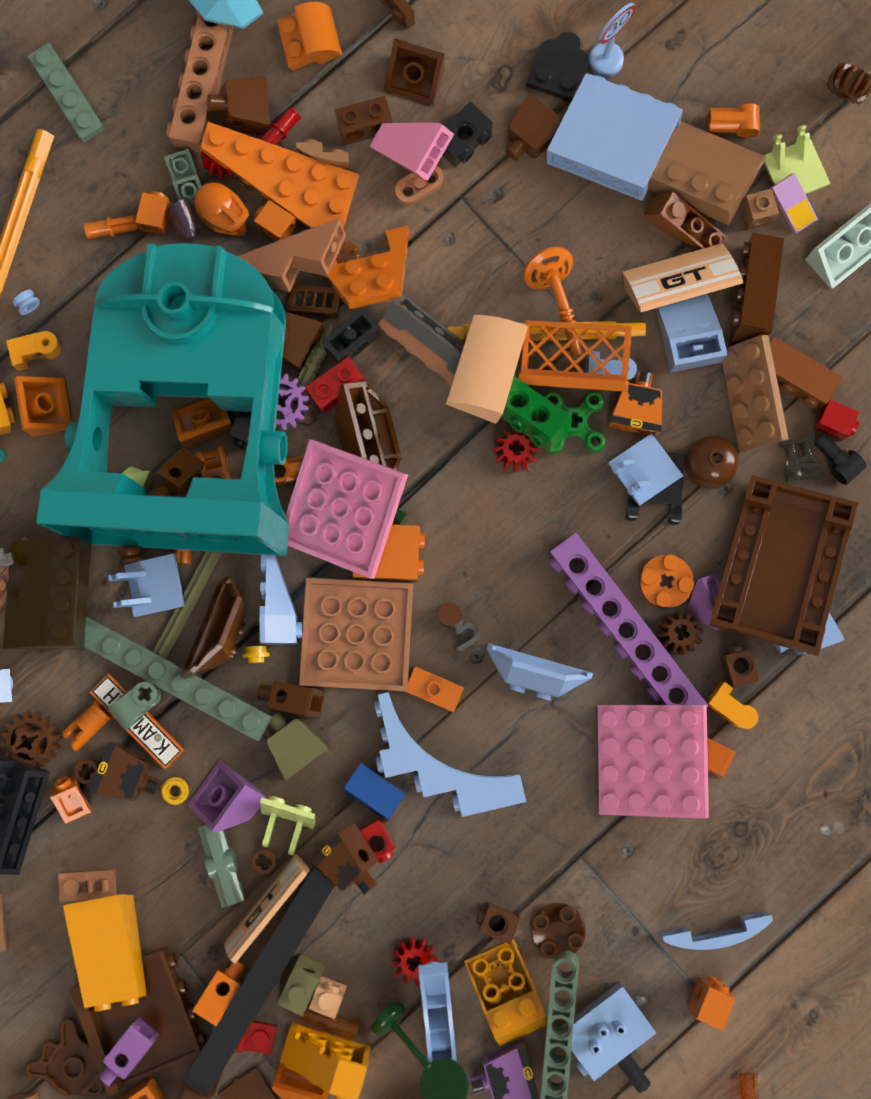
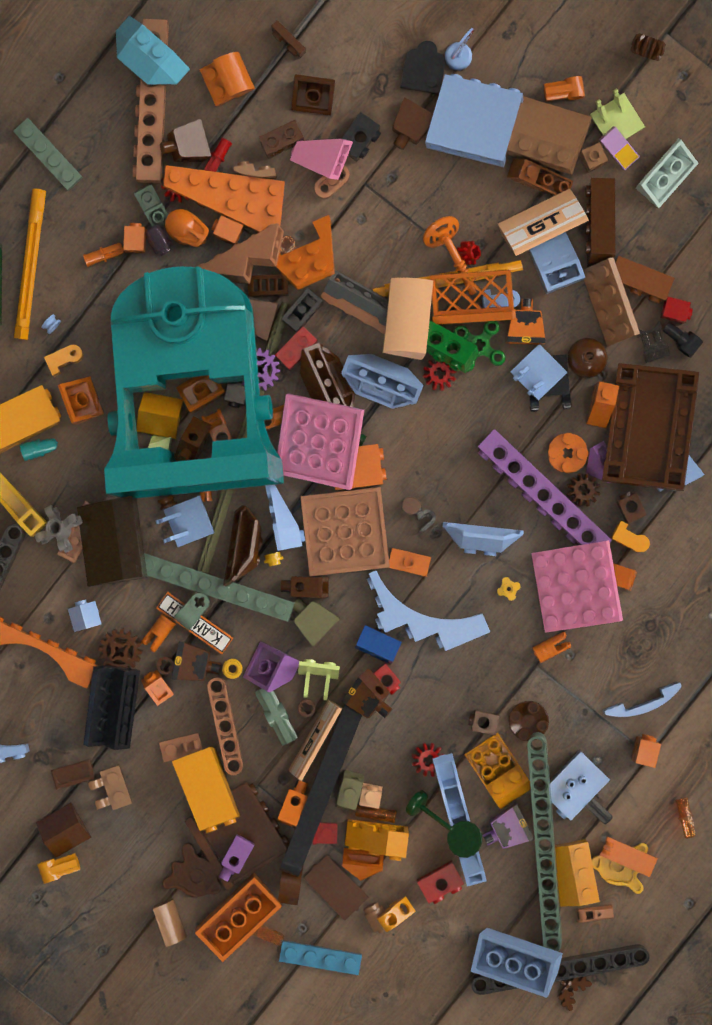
camera: 10 degrees left, 5 degrees up
(142, 441) = (159, 415): none -> light orange slope
(145, 879) = (224, 736): none -> nougat beam
(438, 445) = (381, 380): none -> light blue wedge
(552, 747) = (503, 589): none -> yellow plate
(581, 301) = (469, 252): none -> red gear
(598, 837) = (547, 649): none -> orange hinge
(724, 523) = (602, 404): none -> orange slope

